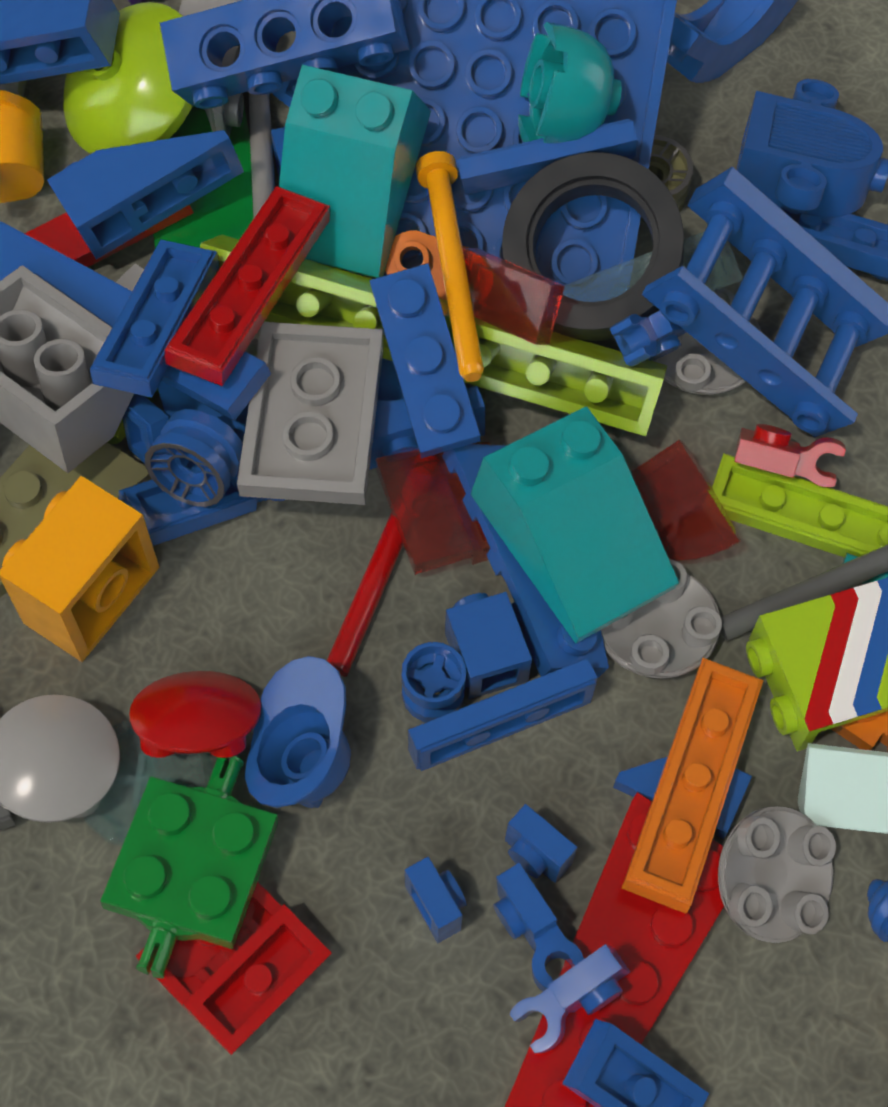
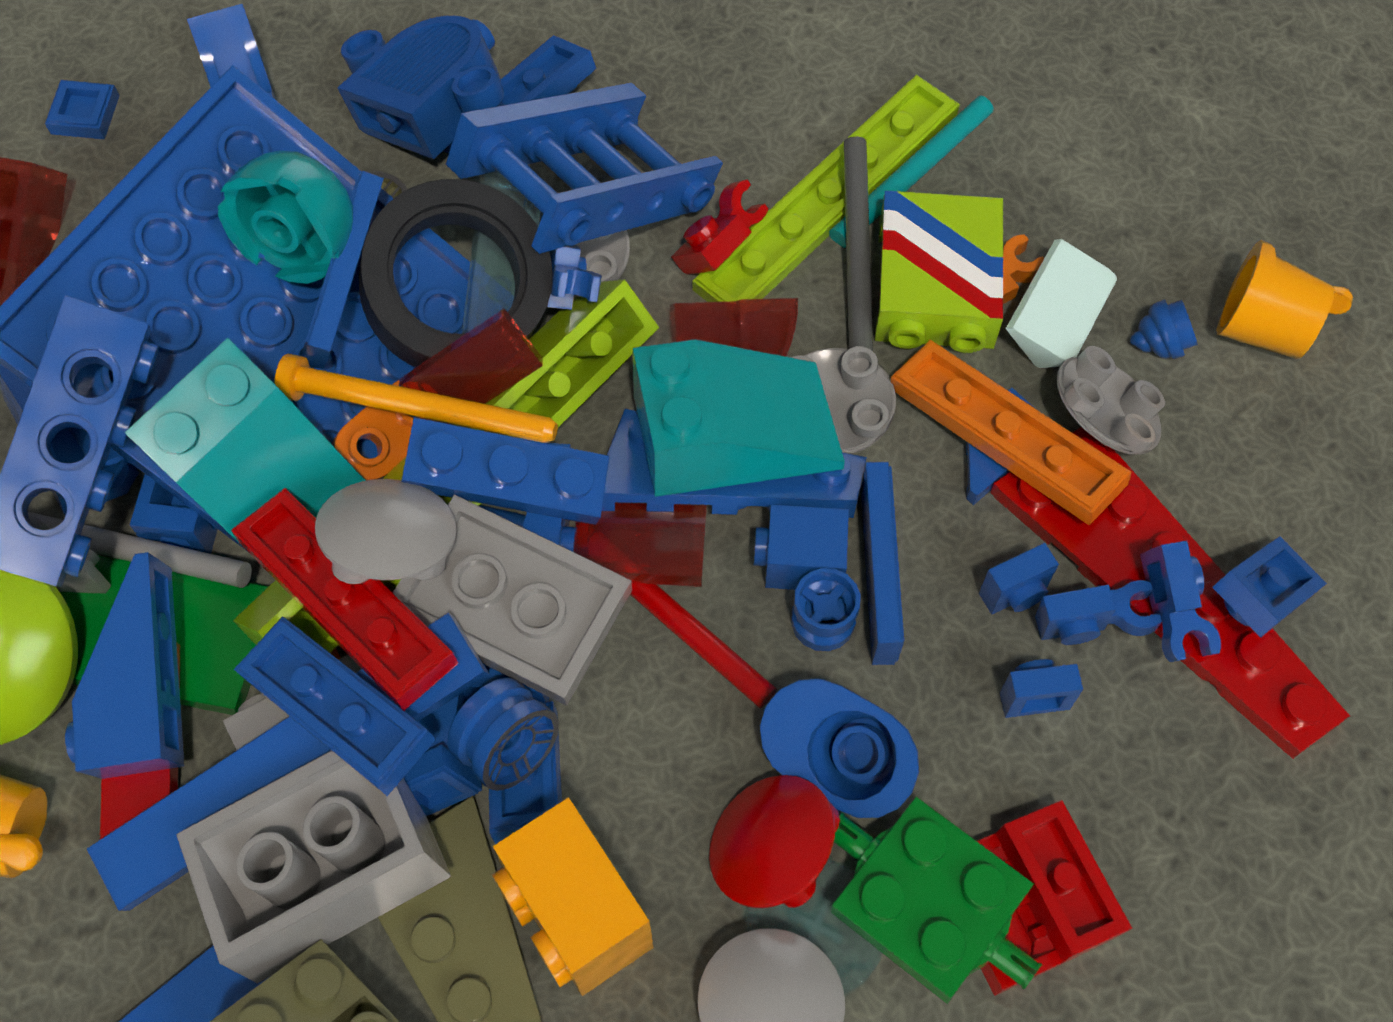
camera: 65 degrees left, 0 degrees up
(314, 286) = (385, 531): none -> light grey dish

